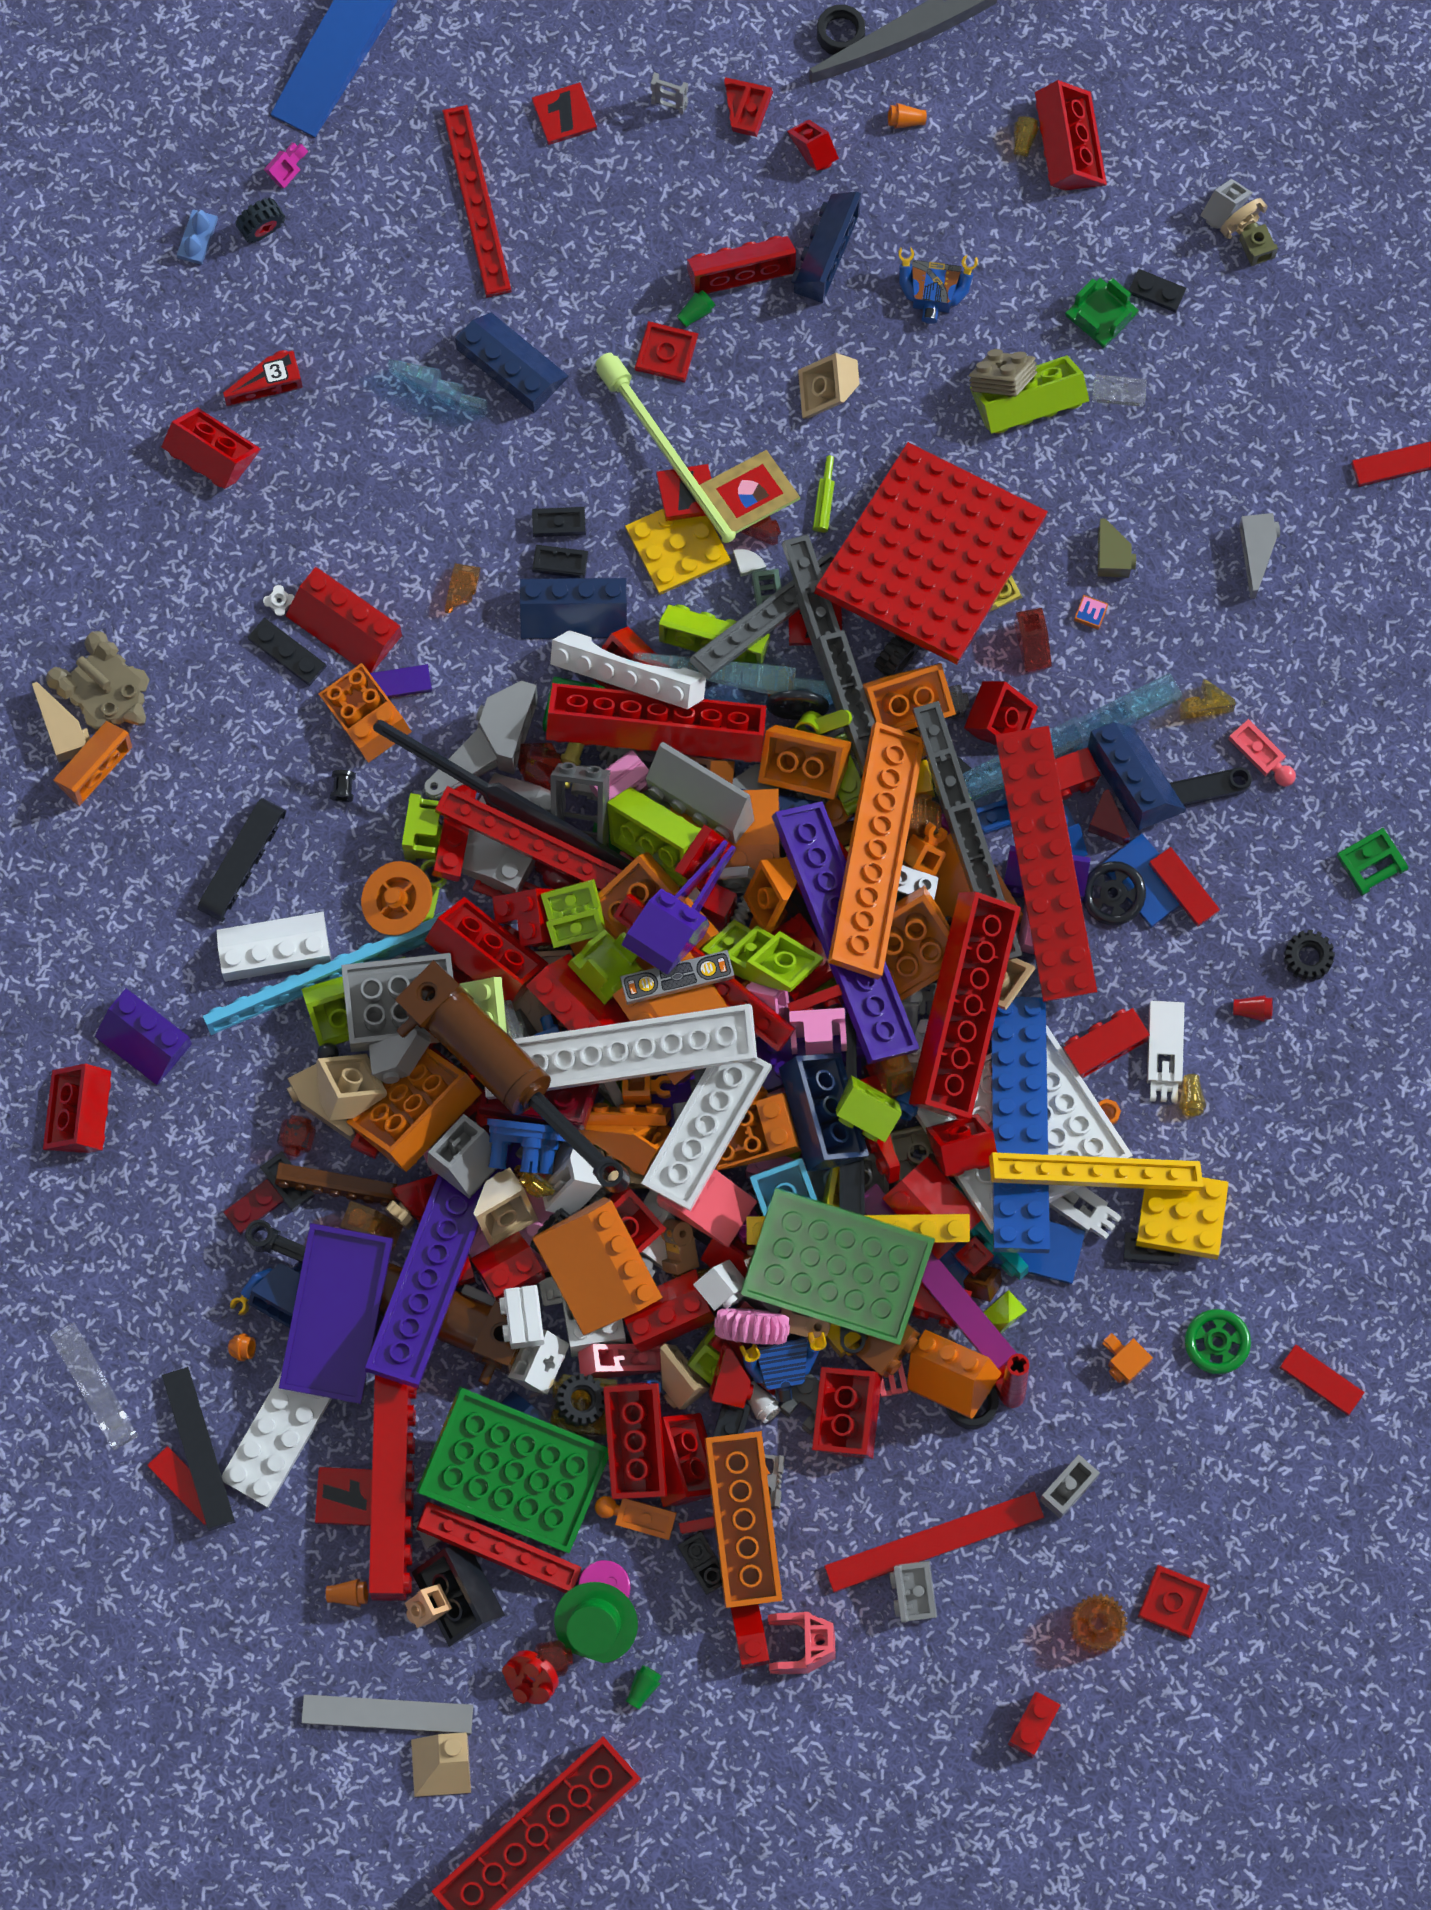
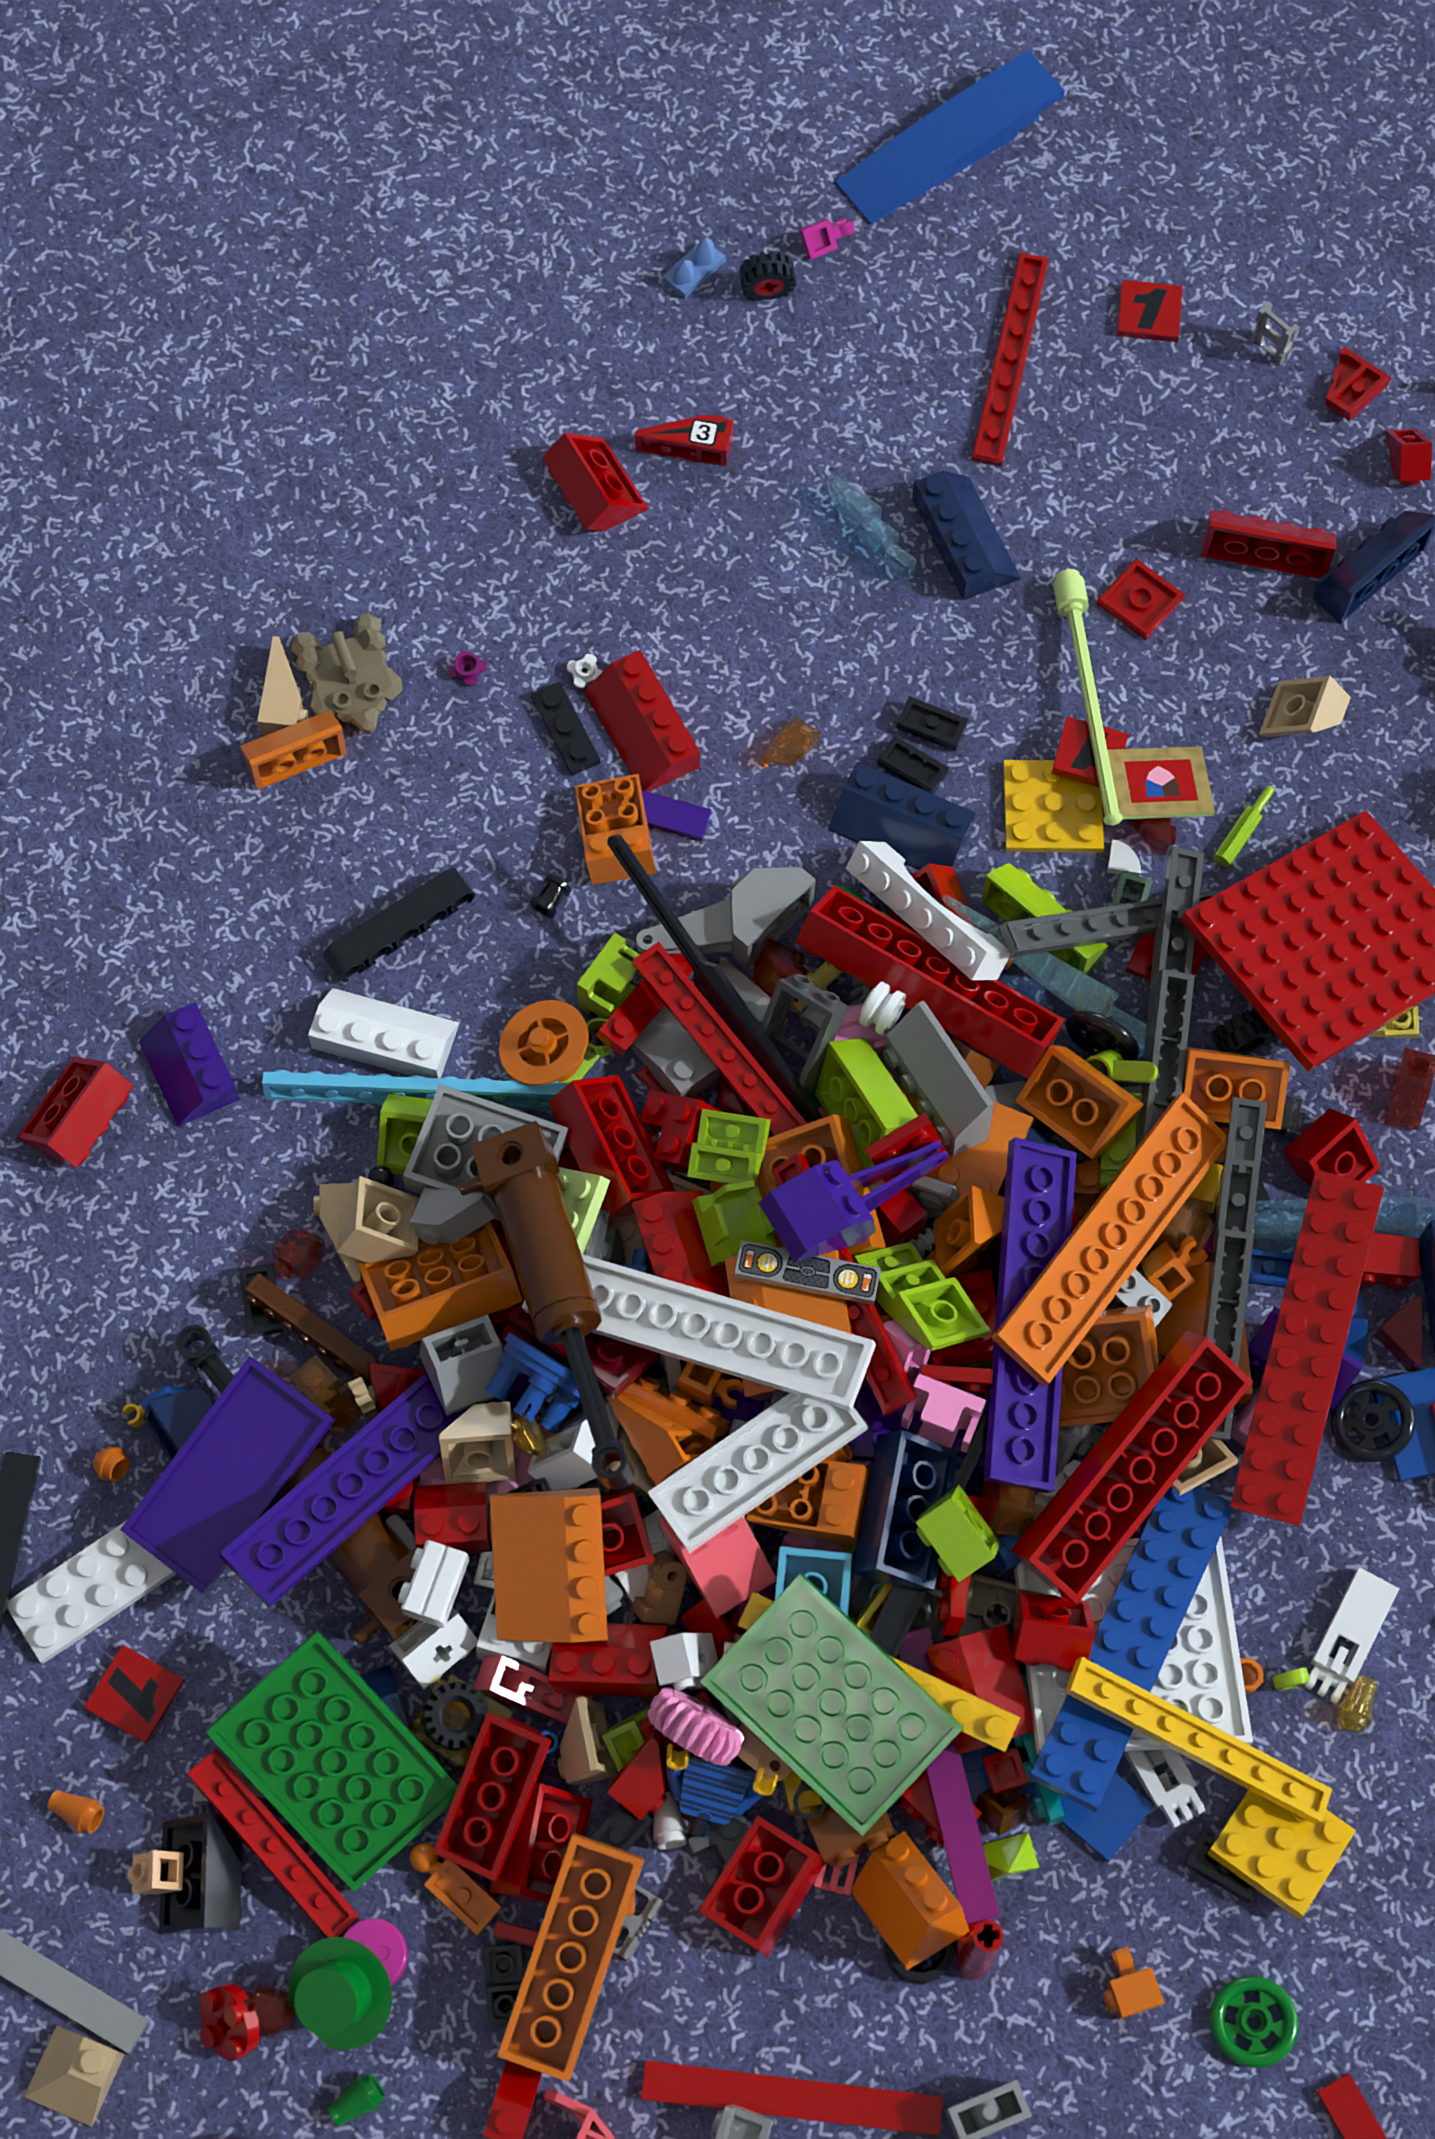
camera: 25 degrees right, 5 degrees down
(185, 632) = (464, 660): none -> magenta plate
(253, 1206) = (210, 1309): dark red plate -> none
(391, 1491) = (183, 1714): red brick -> none
(633, 760) = (882, 1008): none -> white wheel
(696, 308) = (1195, 568): green cone -> none
(1106, 1042) = (1283, 1591): red brick -> none
(1139, 1100) = (1291, 1679): none -> lime tile

